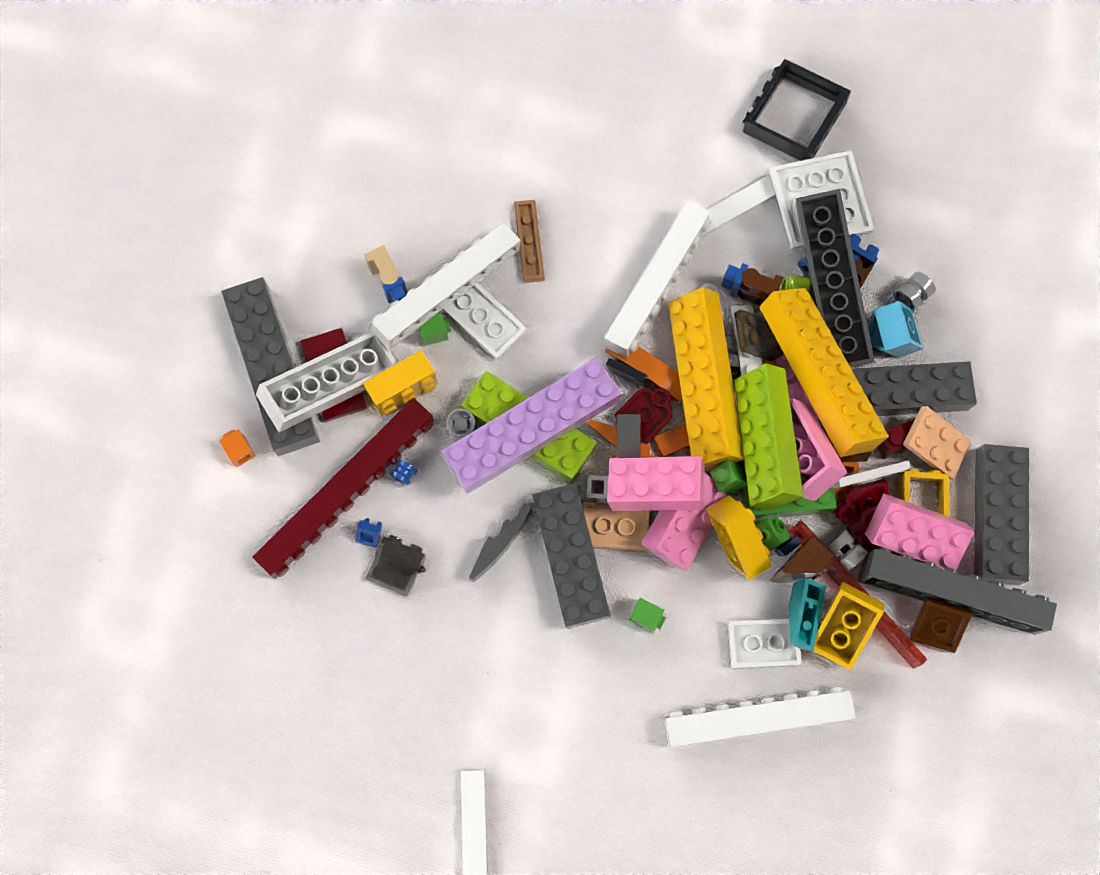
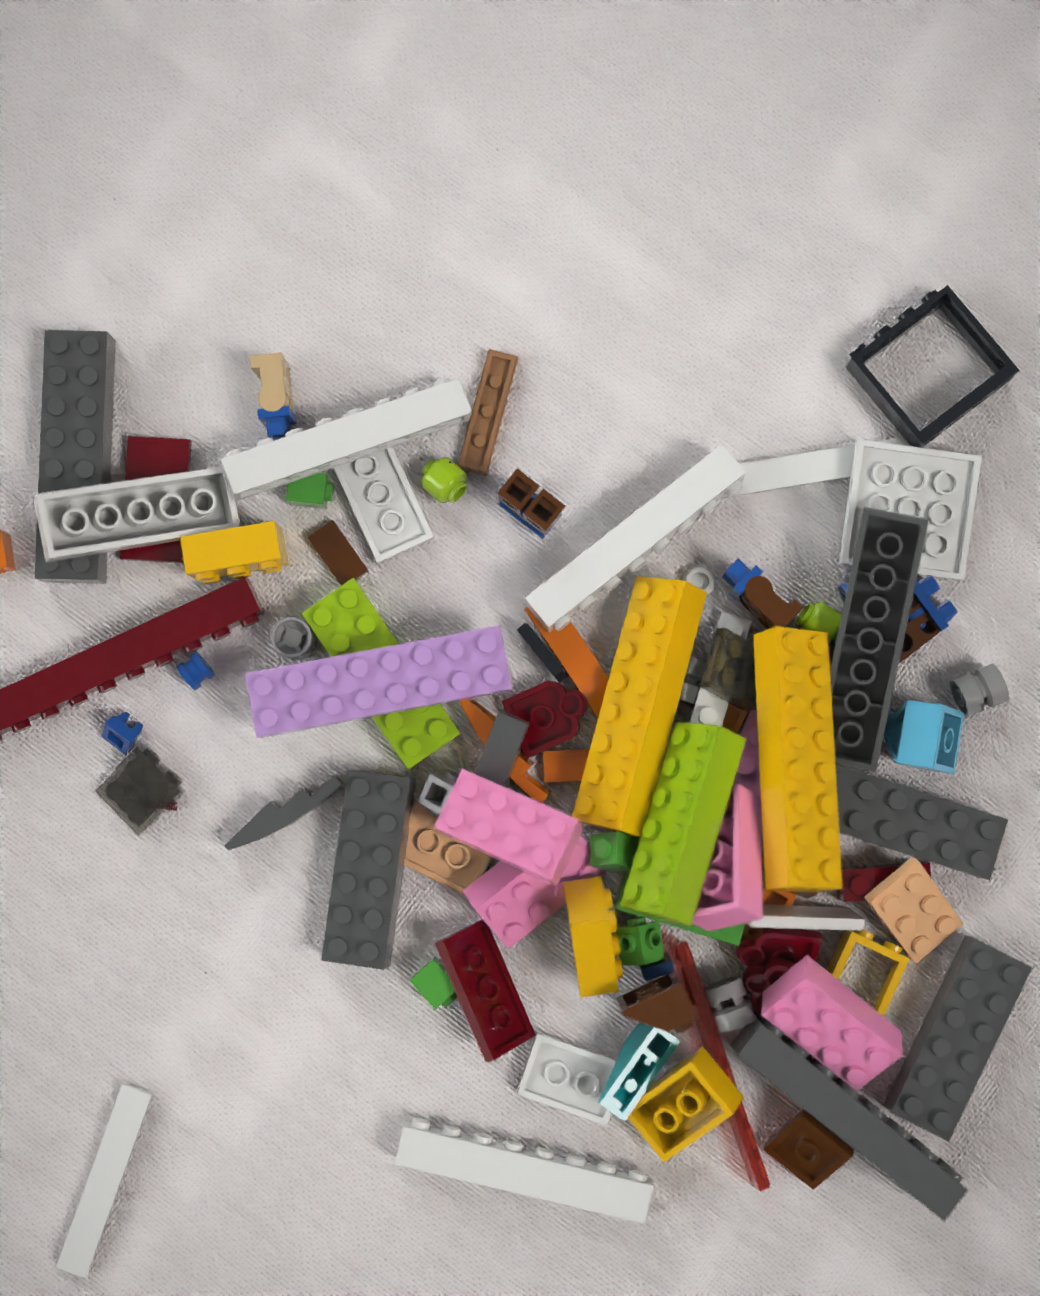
camera: 25 degrees right, 10 degrees up
(467, 363) = (337, 553): none -> reddish brown tile
(519, 290) = (444, 480): none -> lime head
(584, 287) = (532, 510): none -> reddish brown hips
(682, 605) = (485, 990): none -> dark red plate

